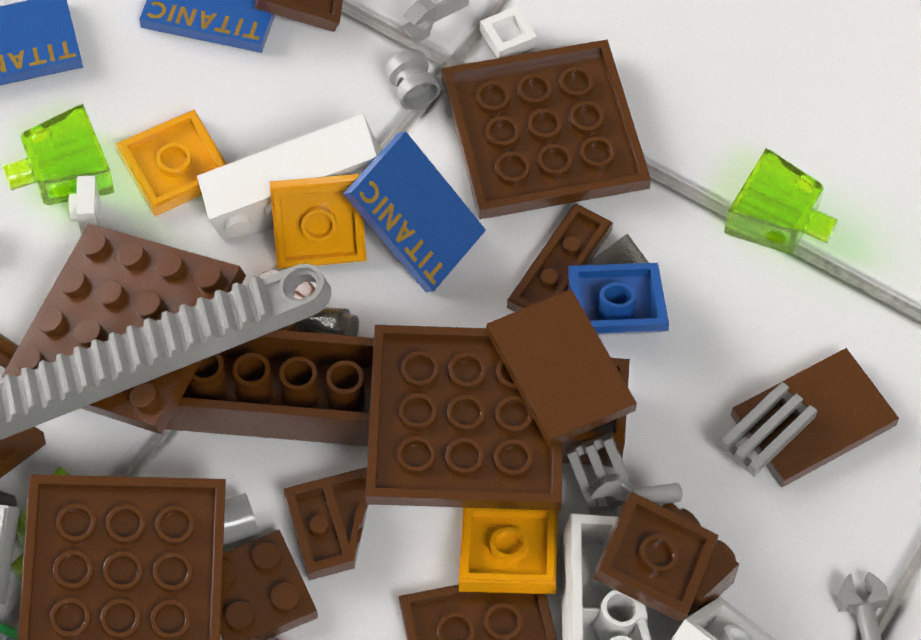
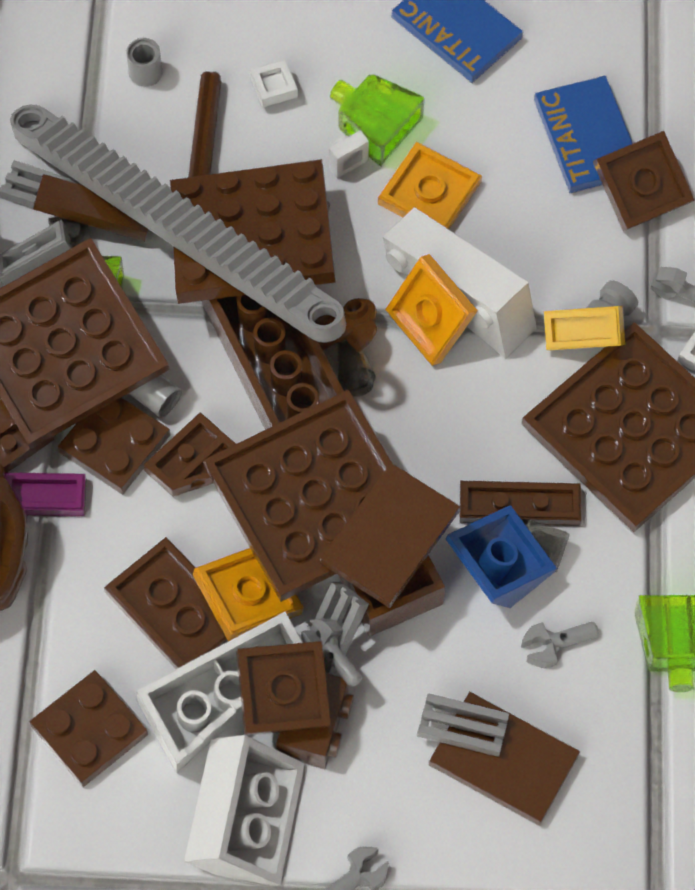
camera: 60 degrees right, 5 degrees up
(415, 211) = (480, 370): blue tile -> none
(425, 104) = (584, 328): none -> yellow tile
(720, 310) = (555, 641): none -> light grey bar

